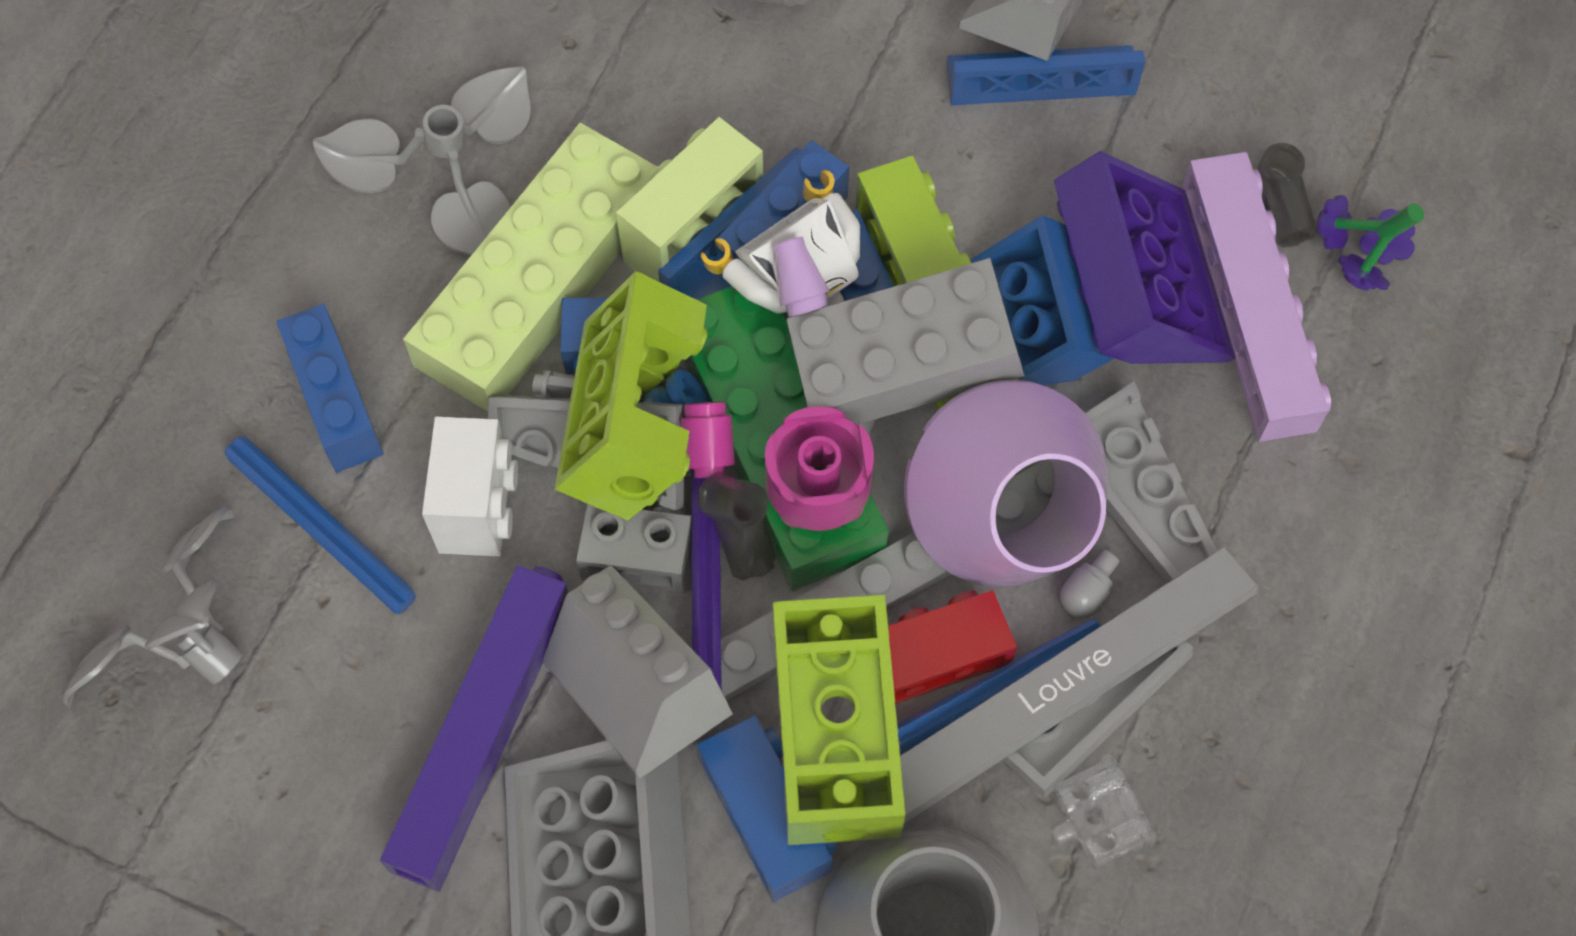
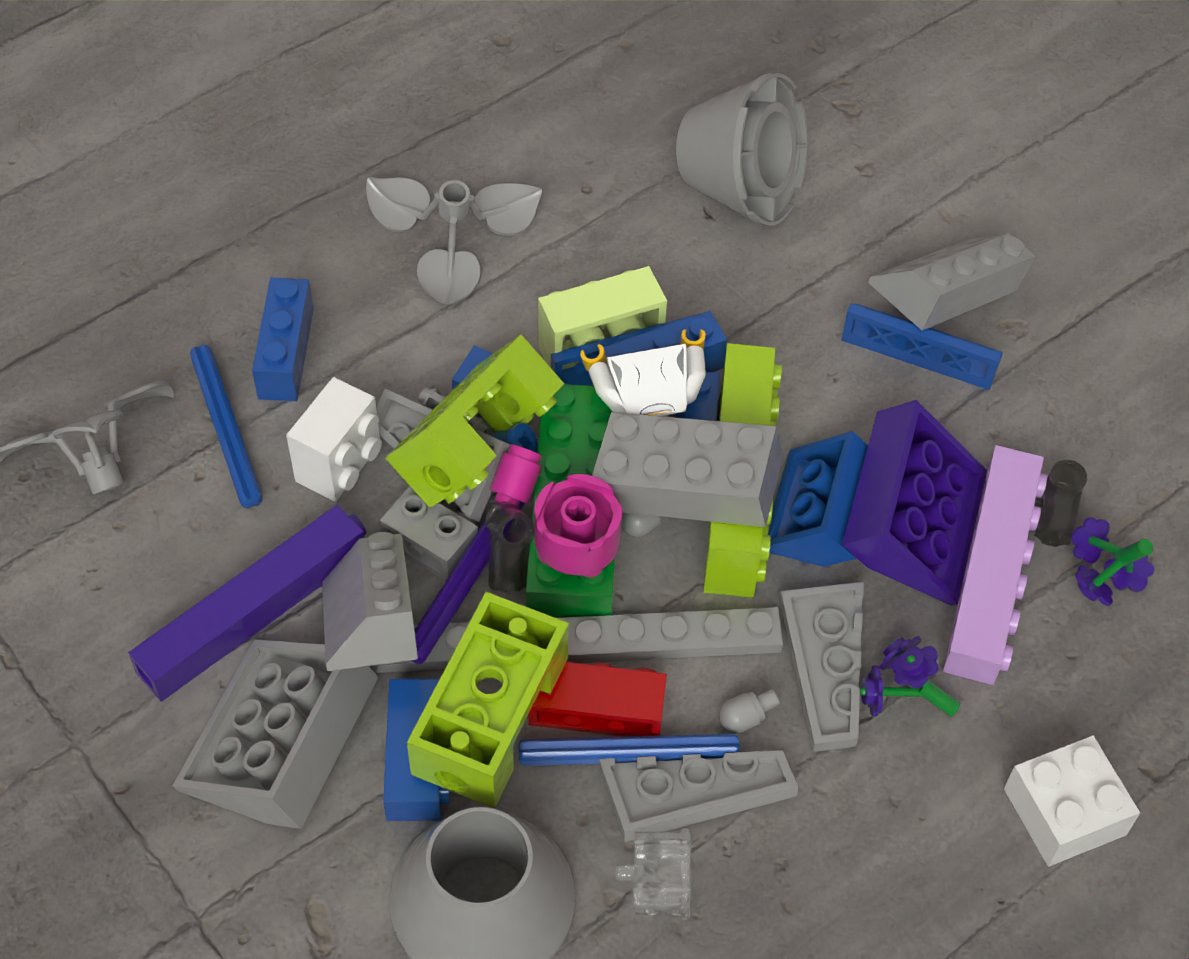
camera: 25 degrees right, 10 degrees down
(544, 249) = (432, 333): yellowish green brick -> none
(799, 279) = (635, 390): lavender cone -> none
(969, 458) = (704, 549): lavender cone -> none
(1071, 680) = (687, 765): light grey tile -> none
(1248, 462) = (911, 667): none -> dark purple plant
(1468, 526) = (1071, 800): none -> white brick

